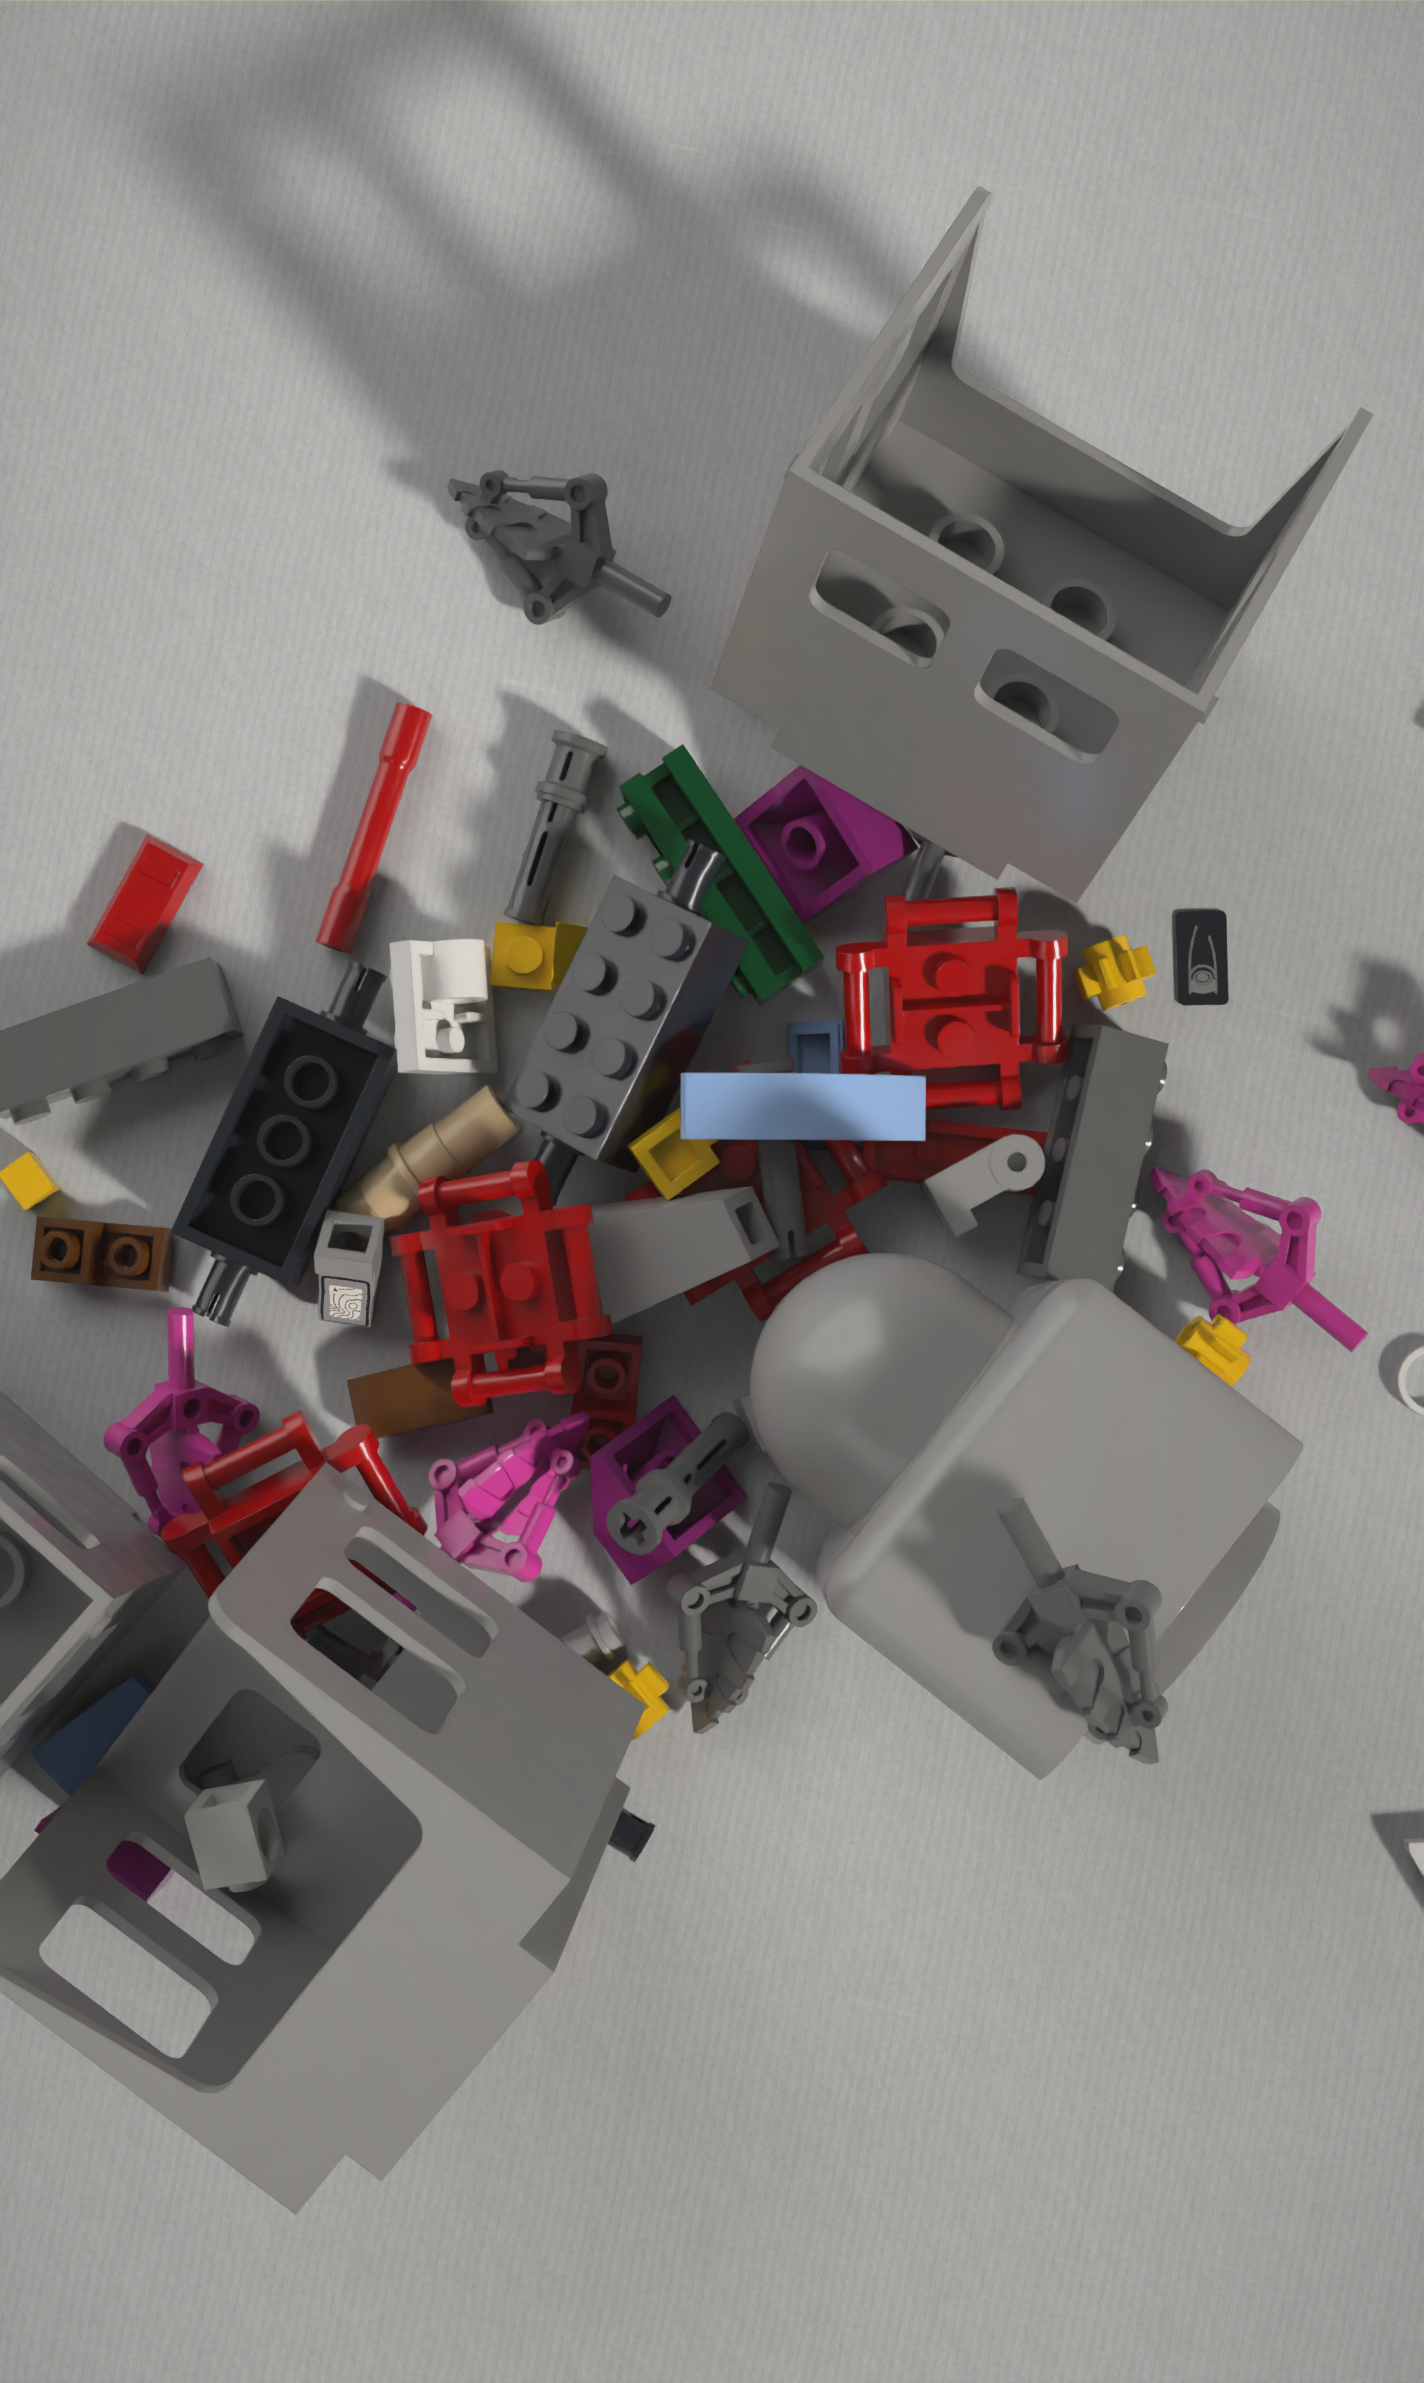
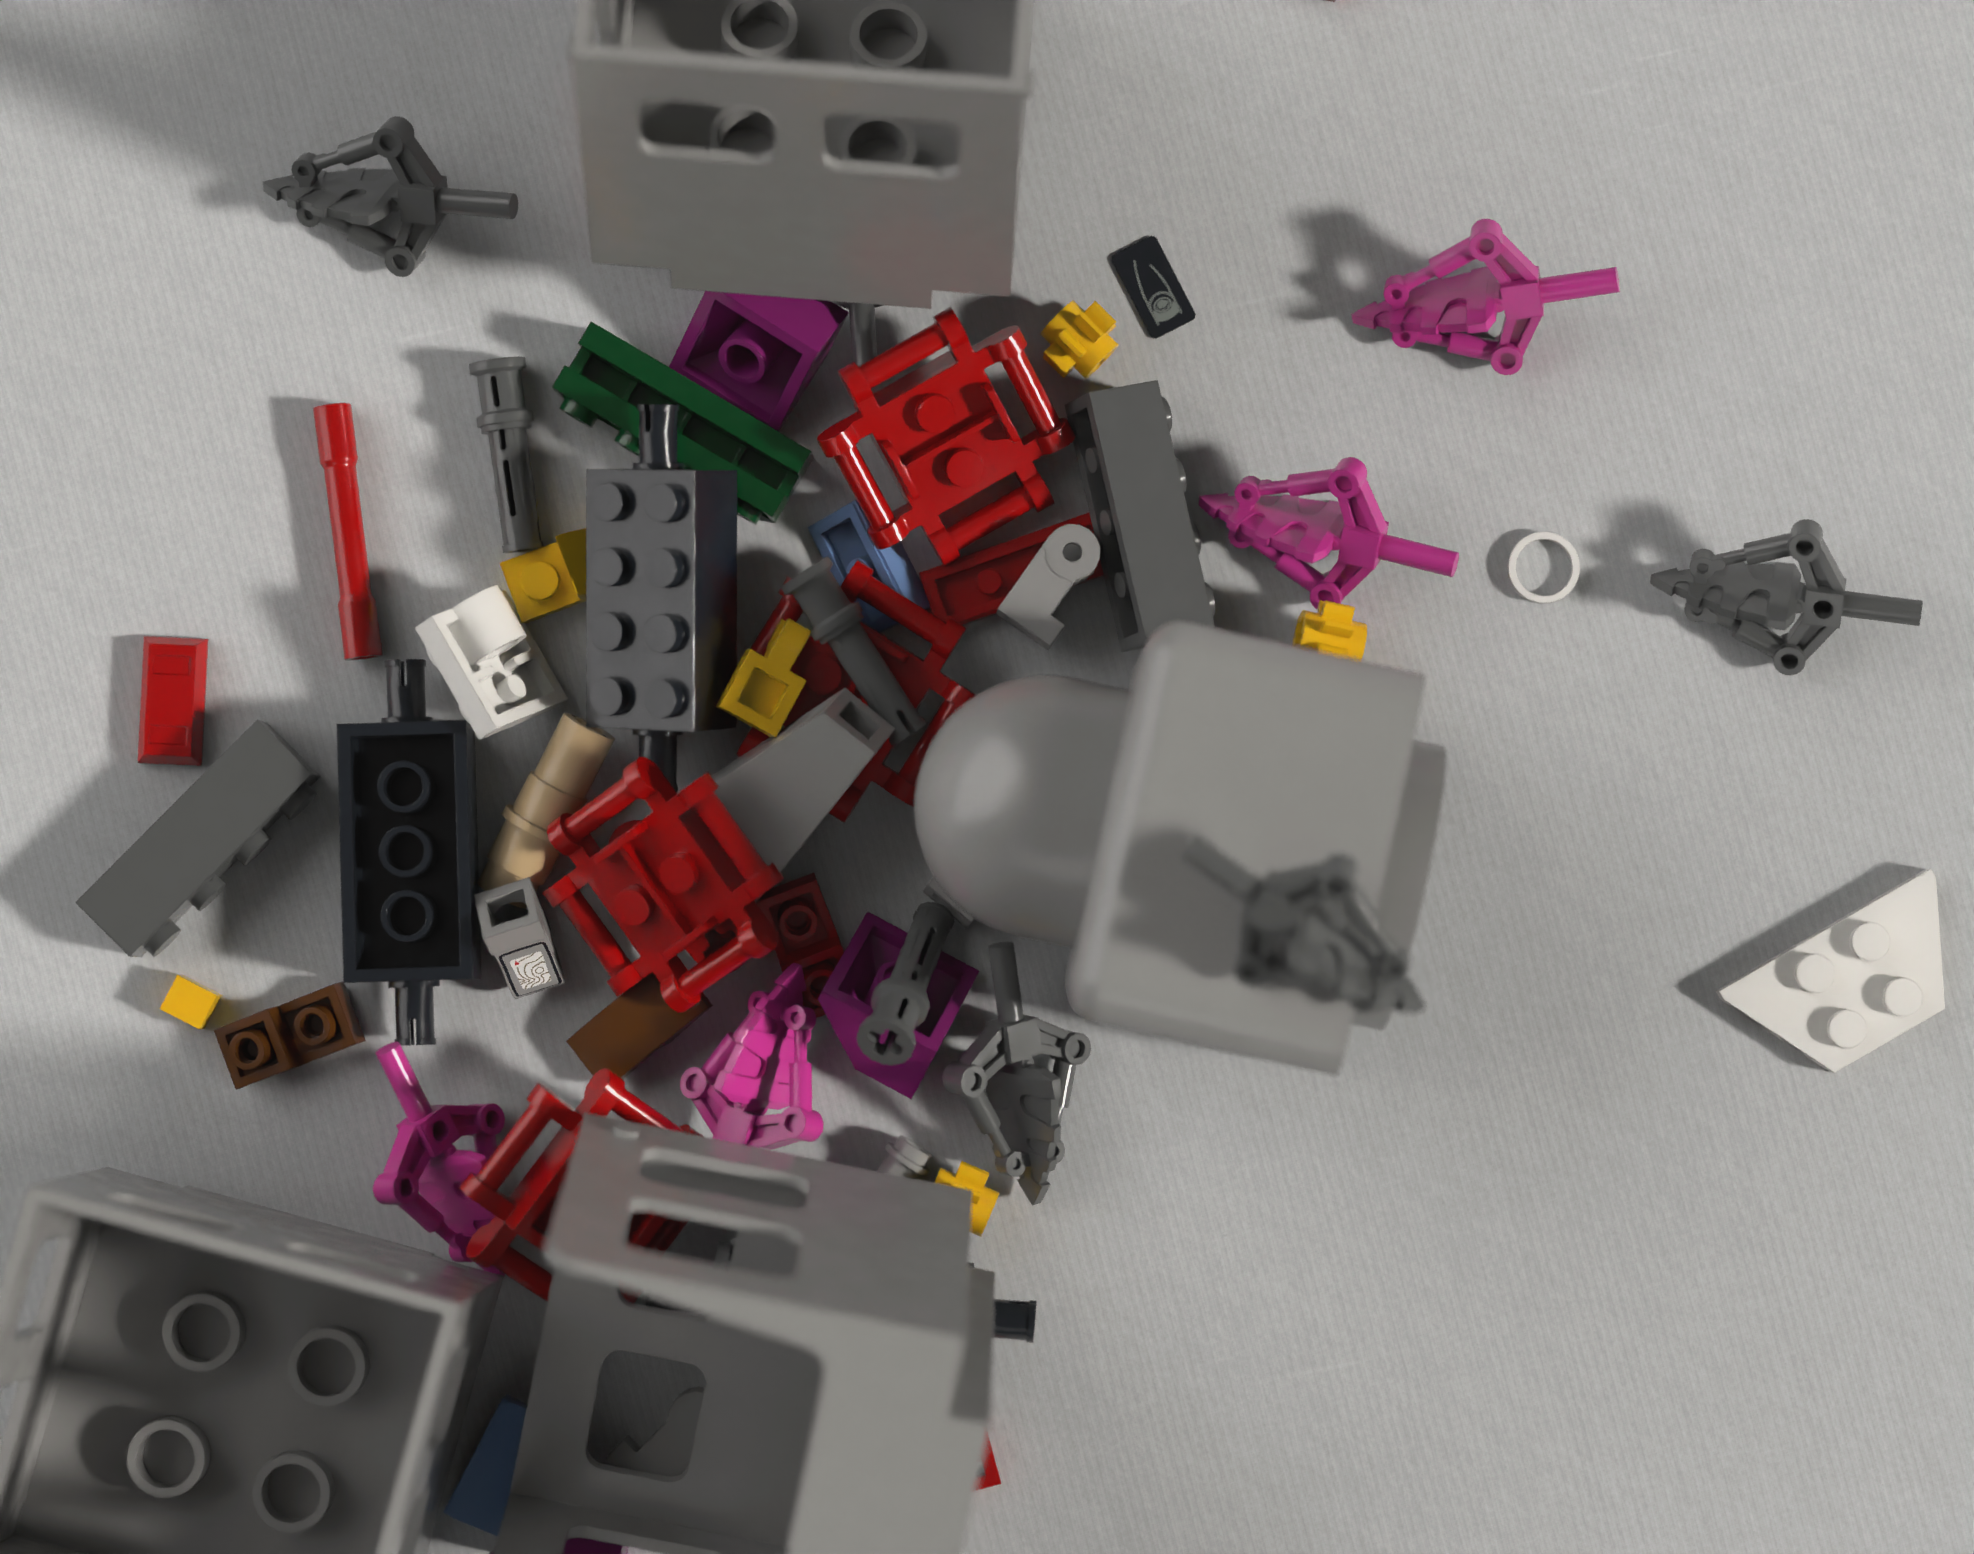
camera: 30 degrees left, 0 degrees up
(235, 1836) = (665, 1487): white brick -> none
(802, 1106) = (856, 594): light blue slope -> none

